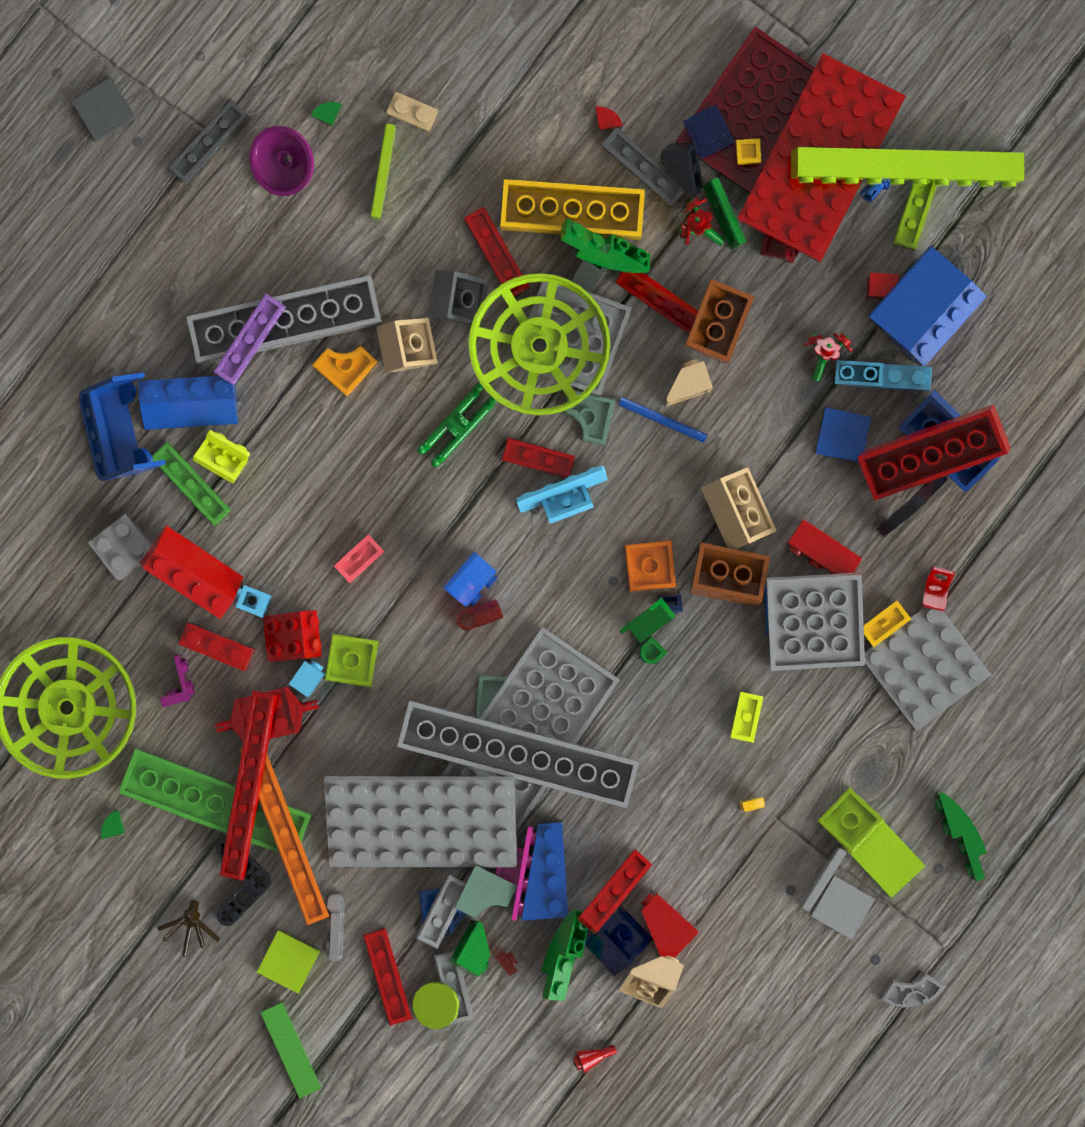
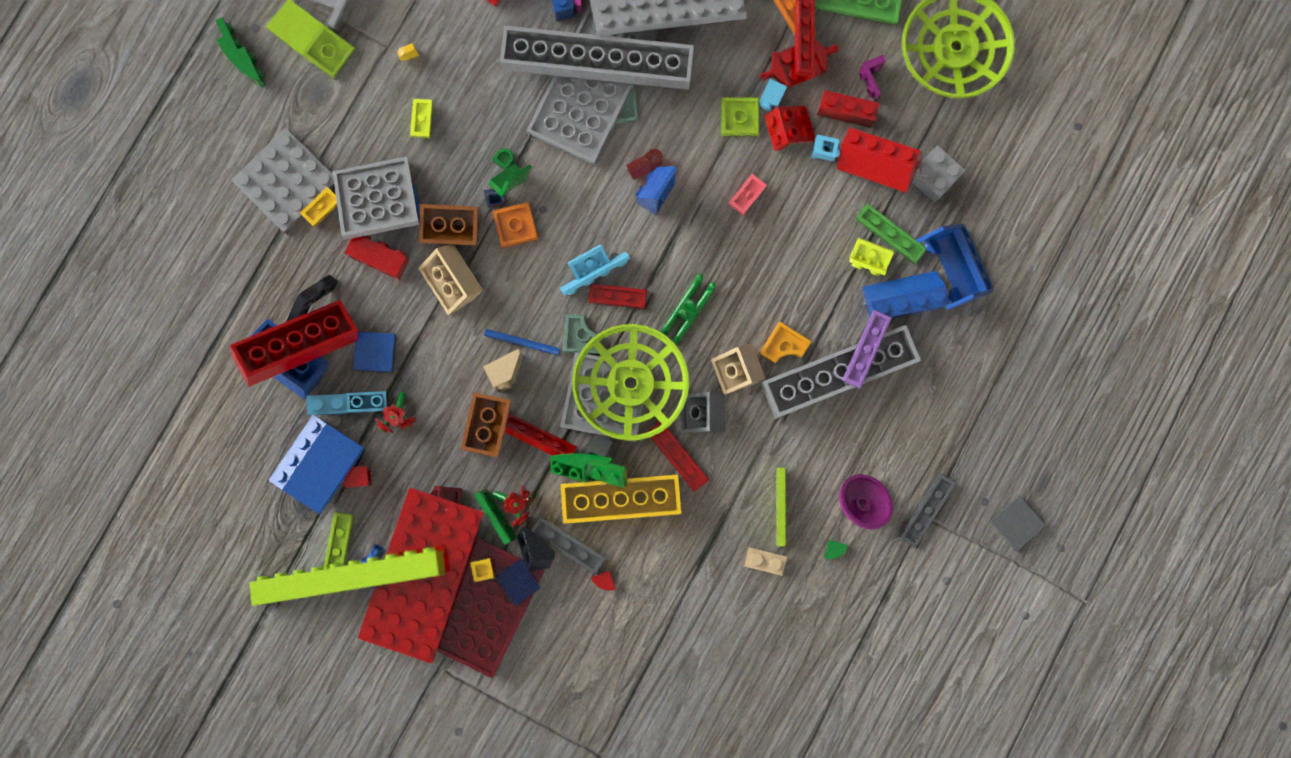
camera: 170 degrees right, 5 degrees down
(937, 589) = (282, 239): red bracket -> none

